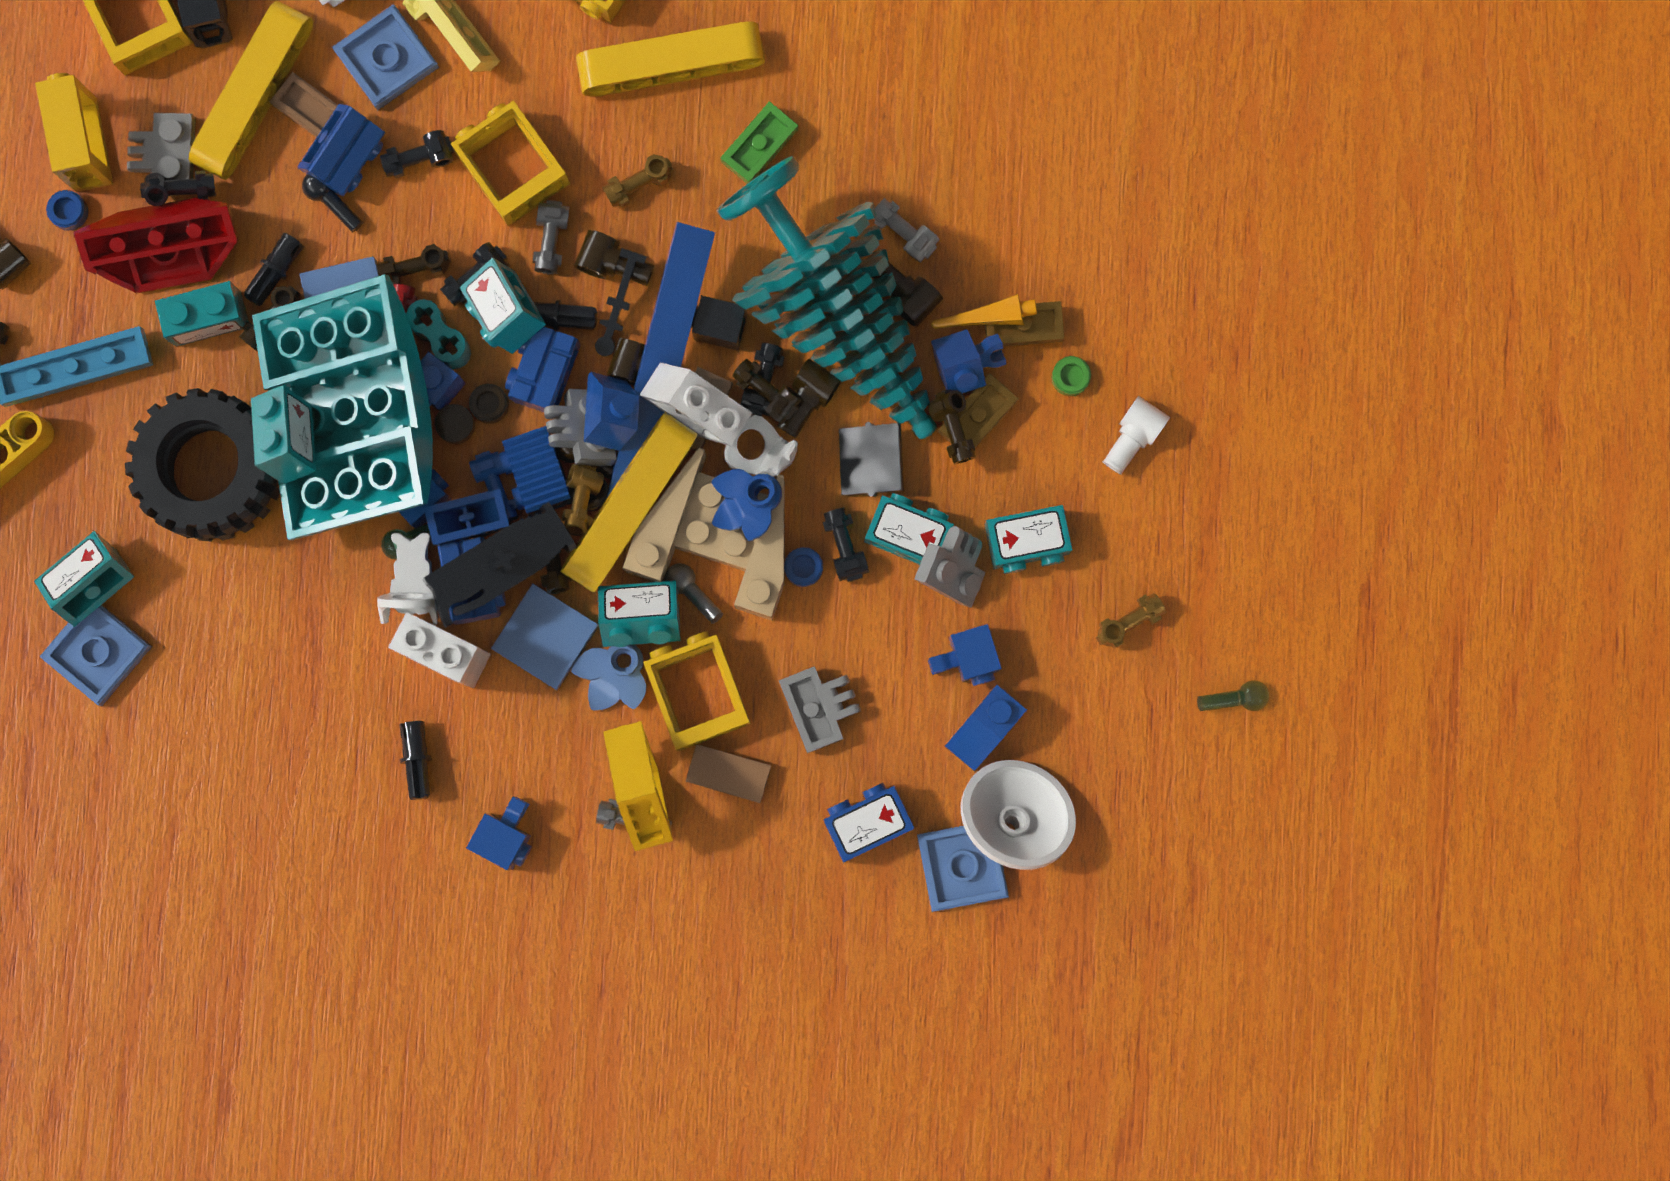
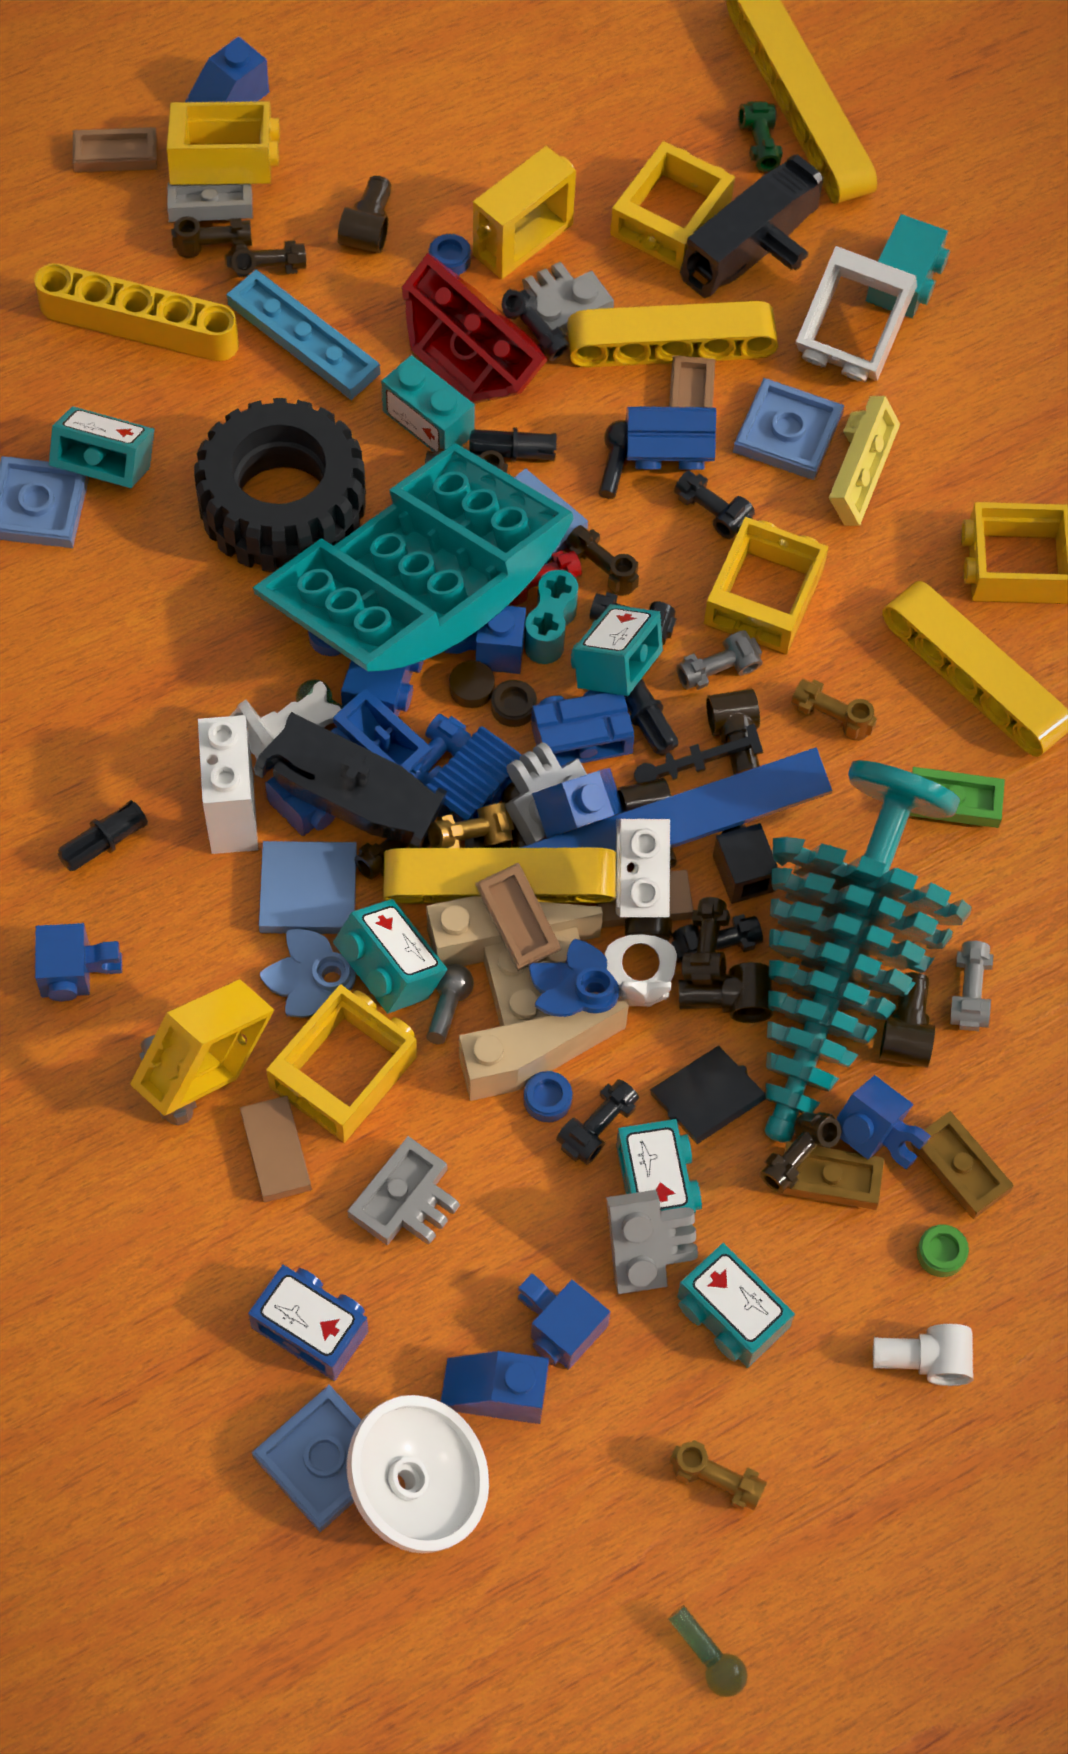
camera: 55 degrees right, 20 degrees down
(283, 434) = (353, 519): teal brick -> none
(673, 510) = (518, 916): none -> medium nougat tile
(1004, 312) = (958, 1129): light orange piece -> none

